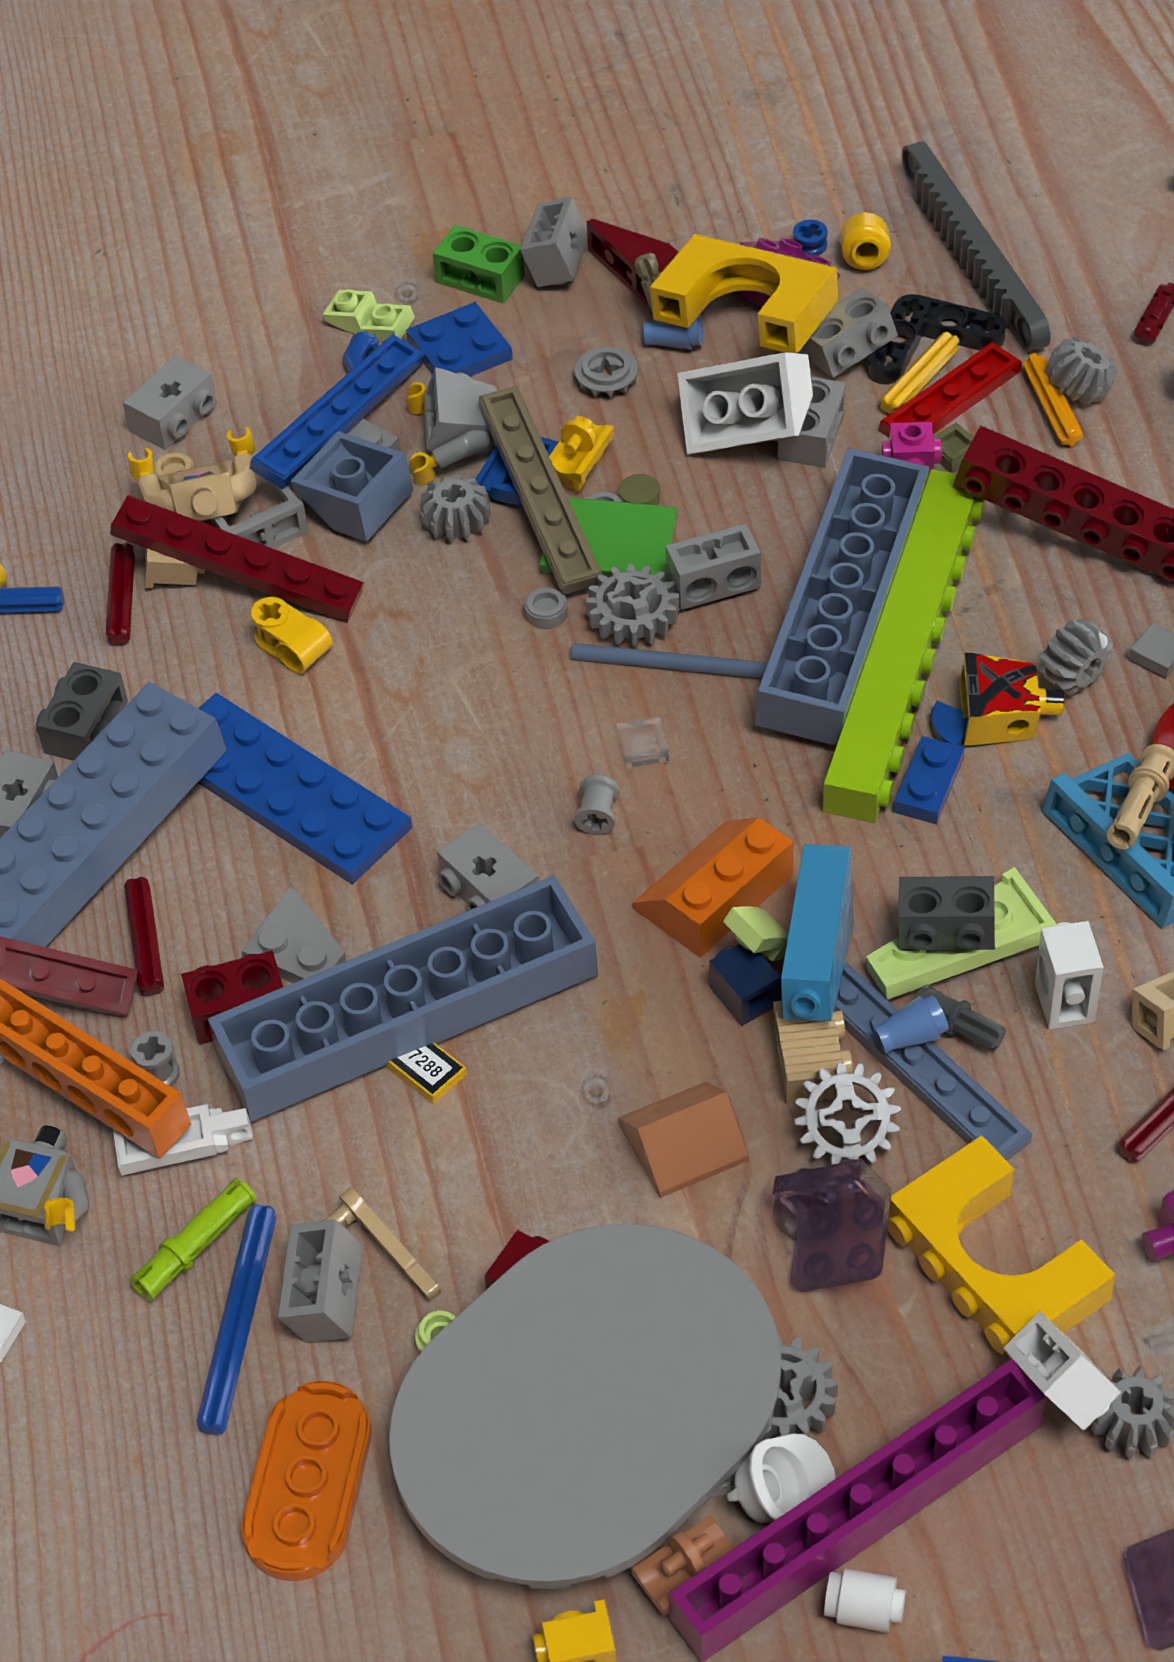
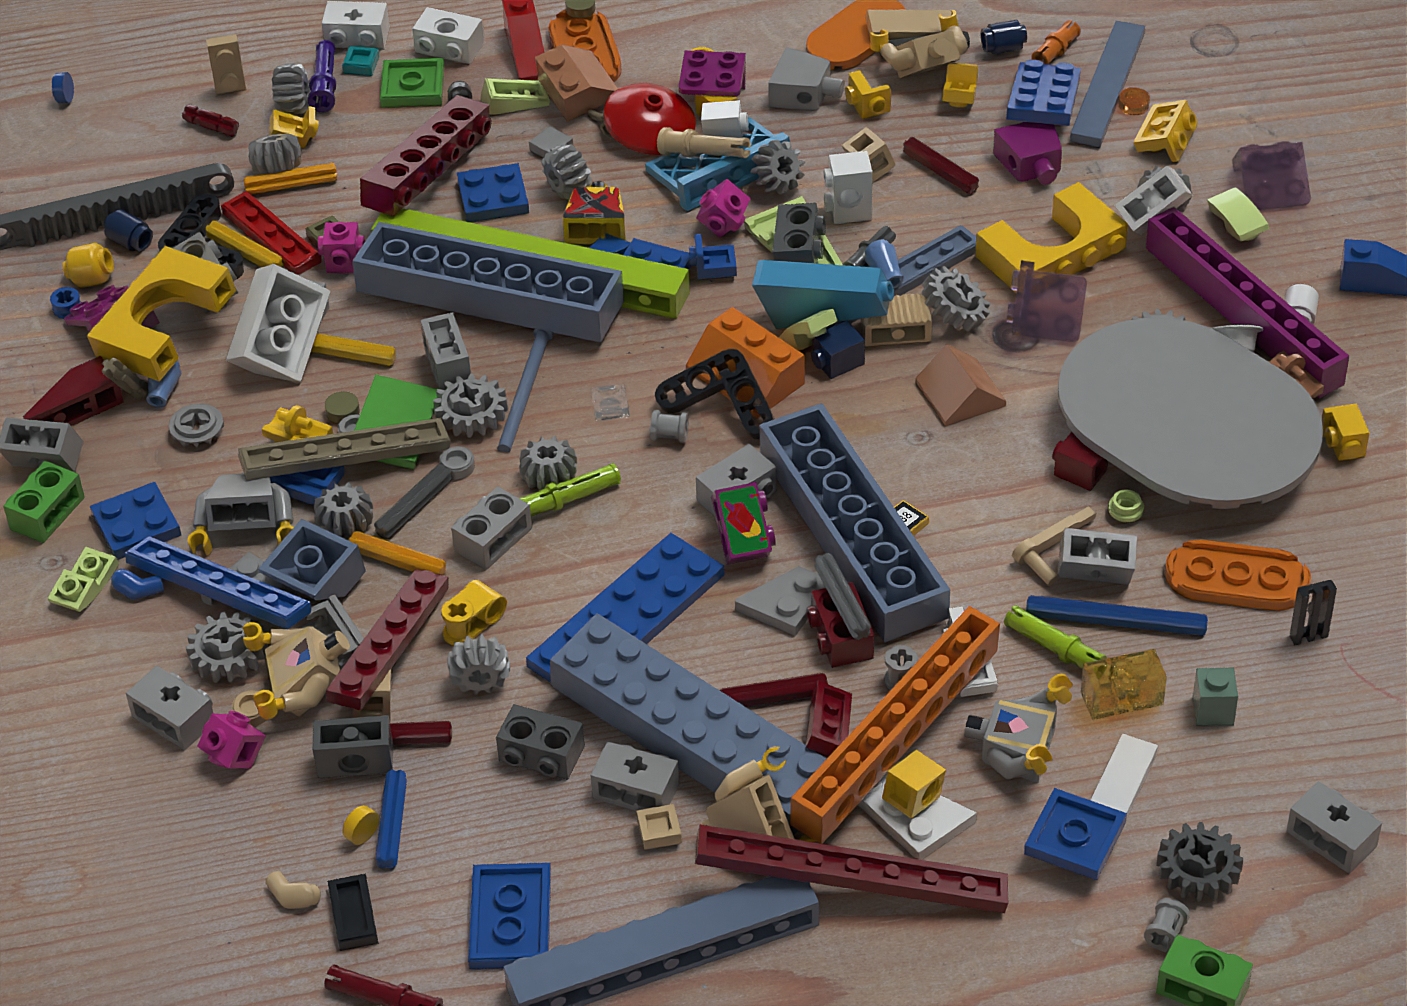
camera: 90 degrees left, 5 degrees down
(62, 1422) = (1215, 696): none -> sand green brick
(84, 547) = (352, 746): none -> dark grey brick
(86, 1305) = (1123, 684): none -> clear yellow brick
(108, 450) = (231, 740): none -> dark pink brick
(183, 1548) = (1319, 610): none -> black tile
(192, 641) = (478, 664): none -> light grey gear
(248, 976) = (842, 596): none -> dark grey axle
(263, 420) = (221, 649): none -> light grey gear
(391, 567) = (396, 554): none -> light orange axle
(396, 874) = (743, 523): none -> brick
(421, 642) = (491, 527): none -> light grey brick
(464, 683) = (557, 495): none -> lime pin
(478, 571) = (412, 501): none -> dark grey axle
(528, 686) = (547, 462): none -> light grey gear
(619, 888) = (730, 381): none -> black beam
(741, 486) = (354, 349): none -> yellow axle
(922, 831) = (712, 260): none -> blue bracket
(932, 267) = (128, 231): none -> dark blue brick
(1035, 831) = (723, 208): none -> dark pink brick
(1048, 596) = (492, 192): none -> blue plate
(1083, 1521) = (1239, 214): none -> yellowish green slope
(1099, 902) = (778, 167): none -> light grey gear
(1144, 385) = (301, 127): none -> yellow bracket

